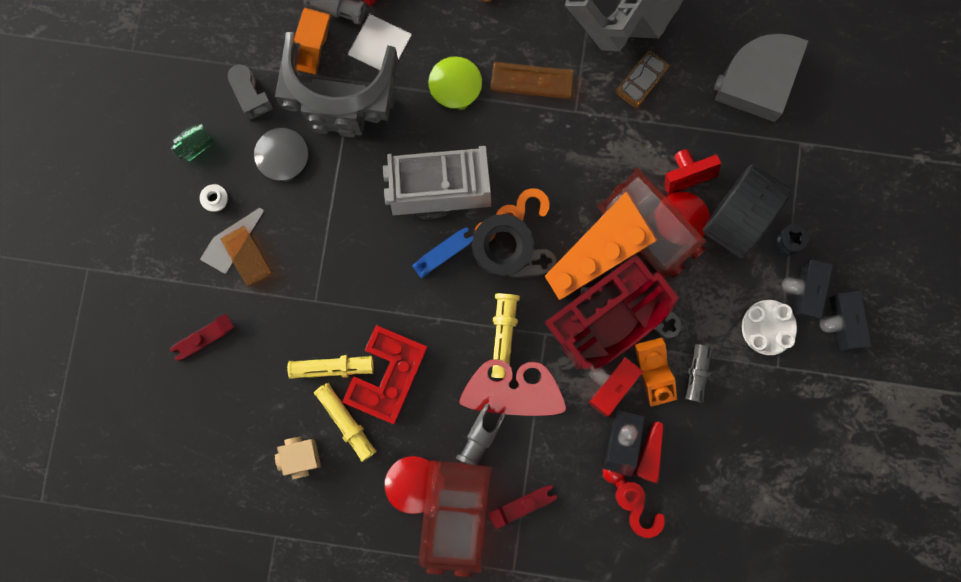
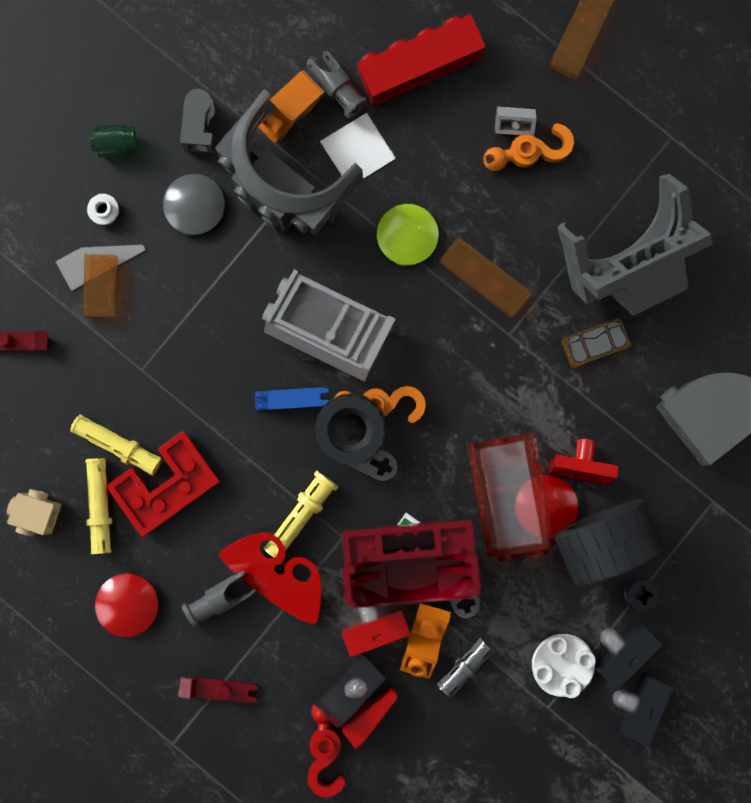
camera: 30 degrees right, 5 degrees up
(454, 518) = (144, 663): clear red door -> none
(607, 244) = (454, 492): orange wedge -> none

